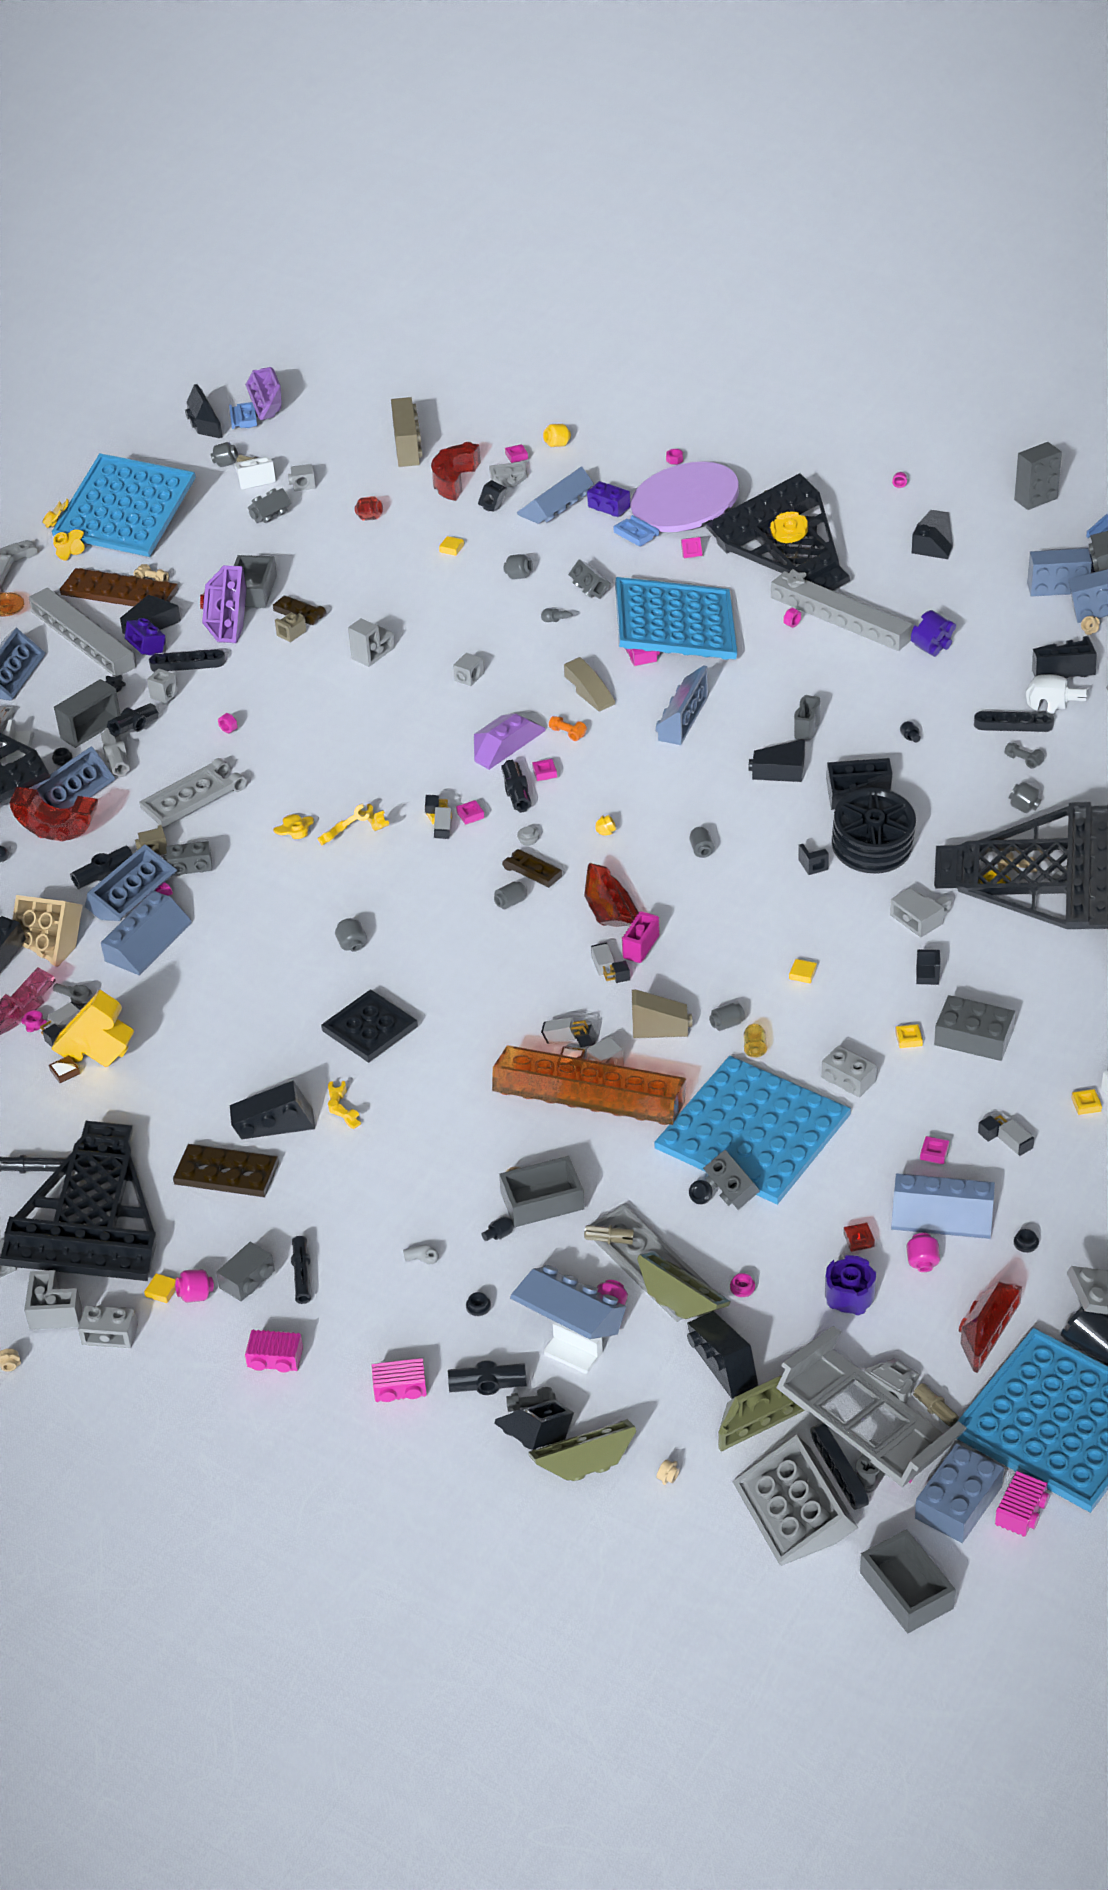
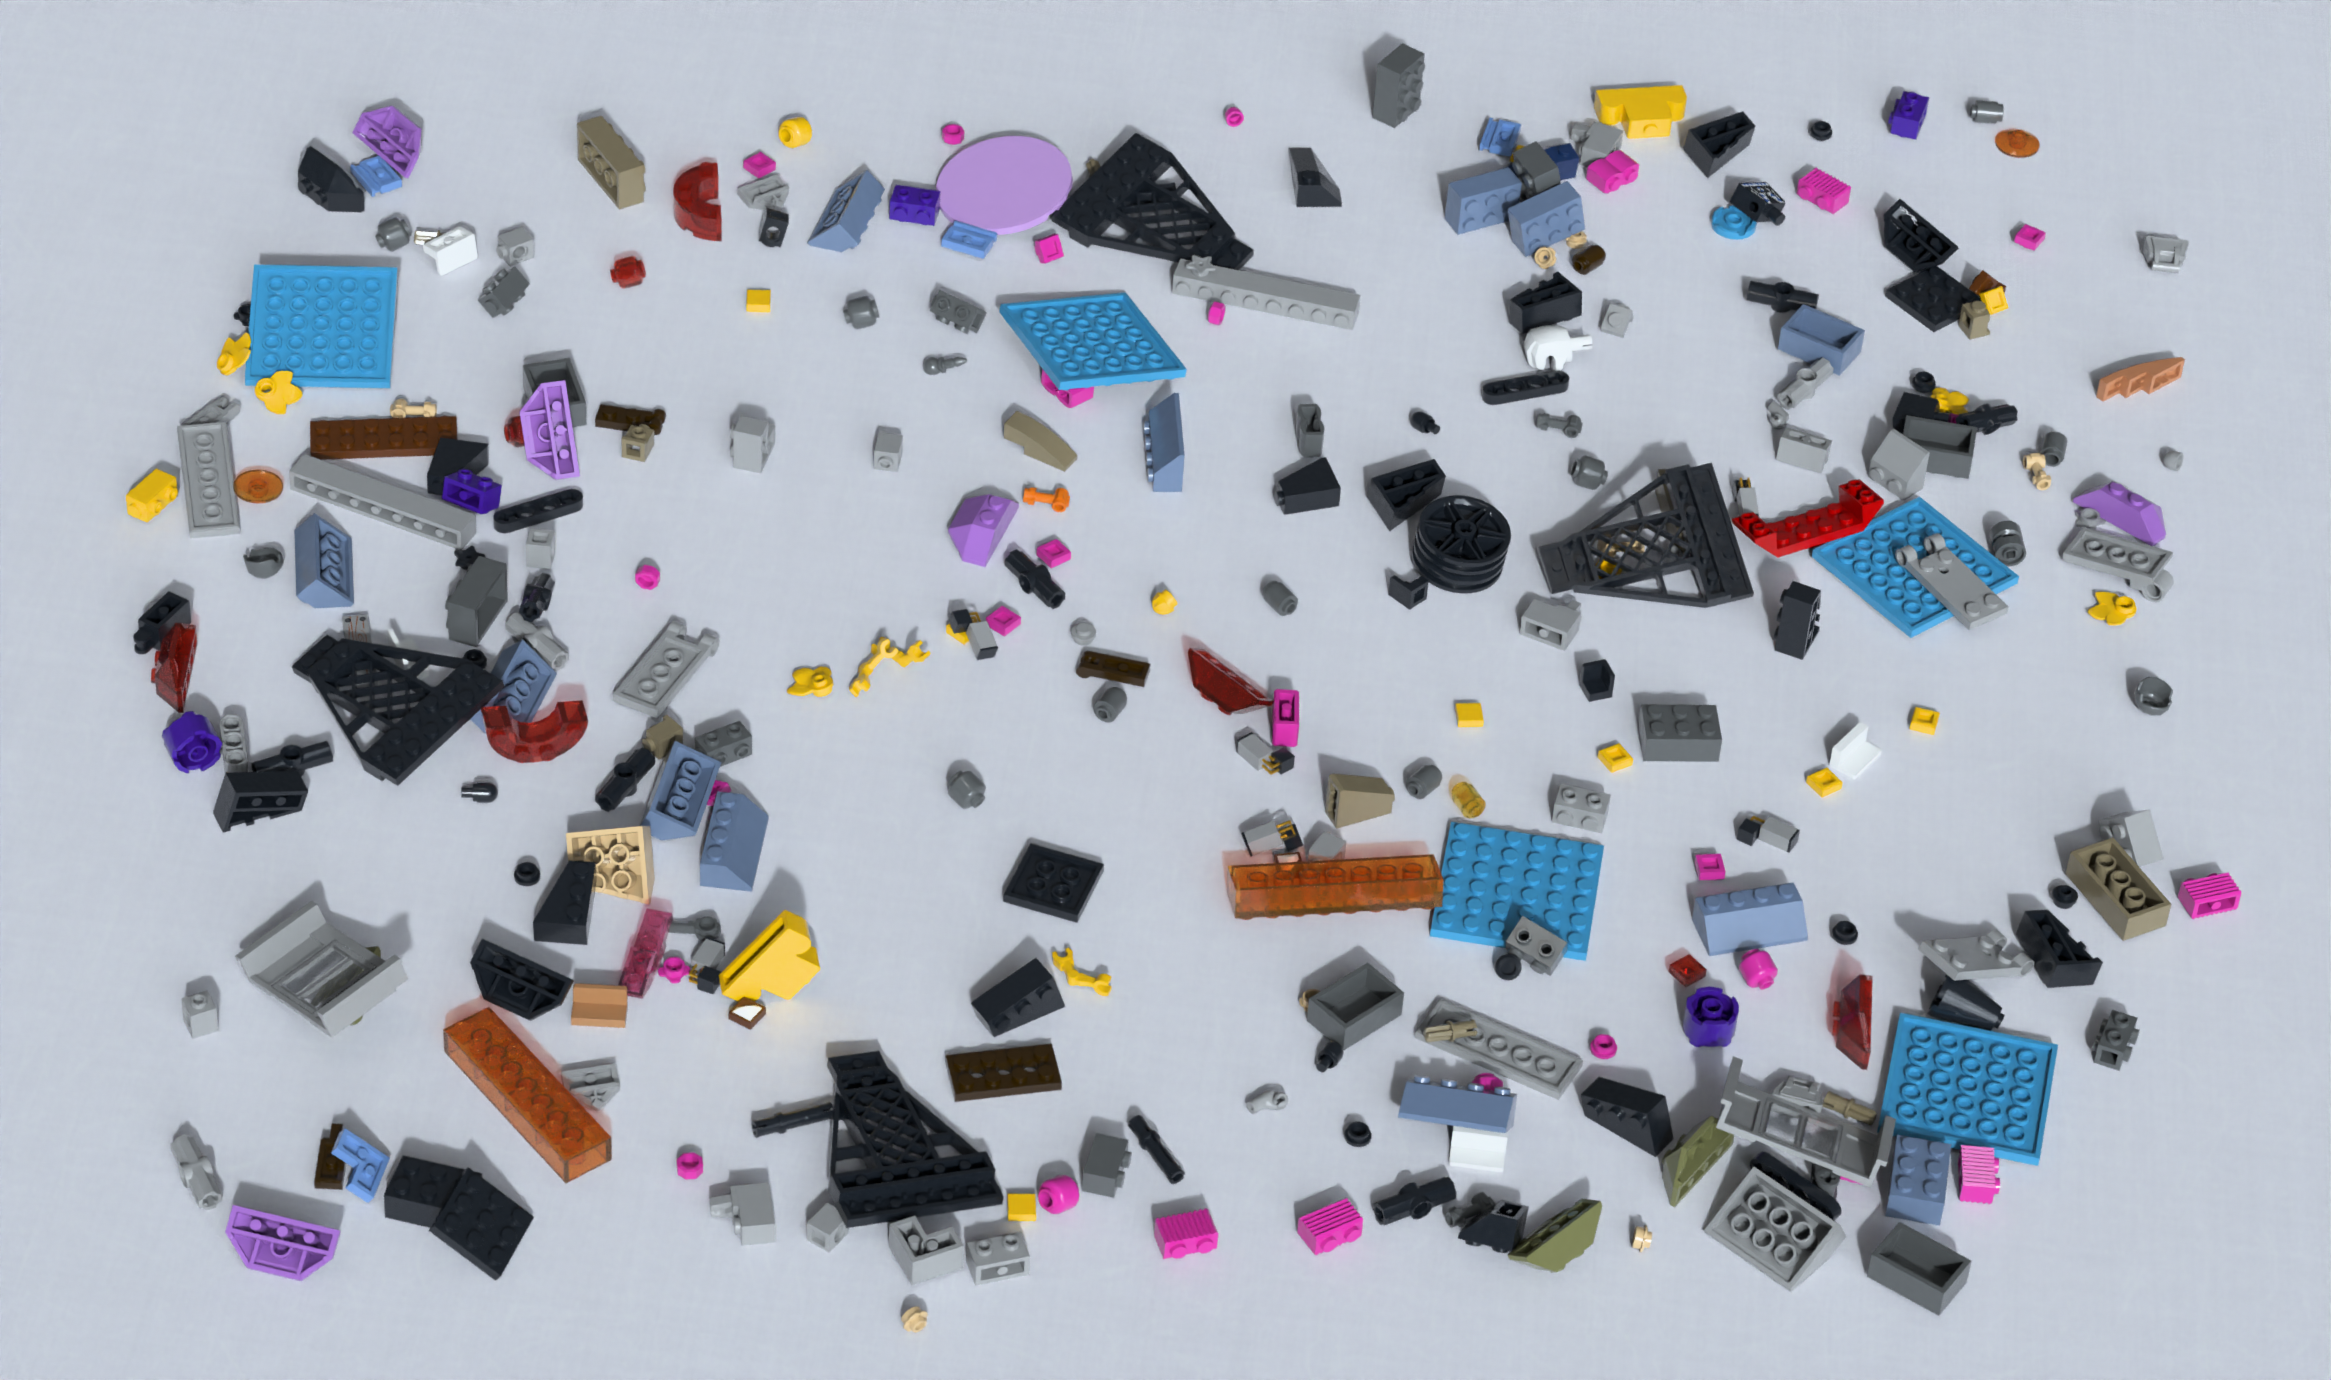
camera: 30 degrees left, 0 degrees up
(678, 1288) = (1557, 1065): olive wedge -> none
(789, 527) = (1158, 203): yellow tile -> none
(933, 633) = (1388, 302): dark purple brick -> none

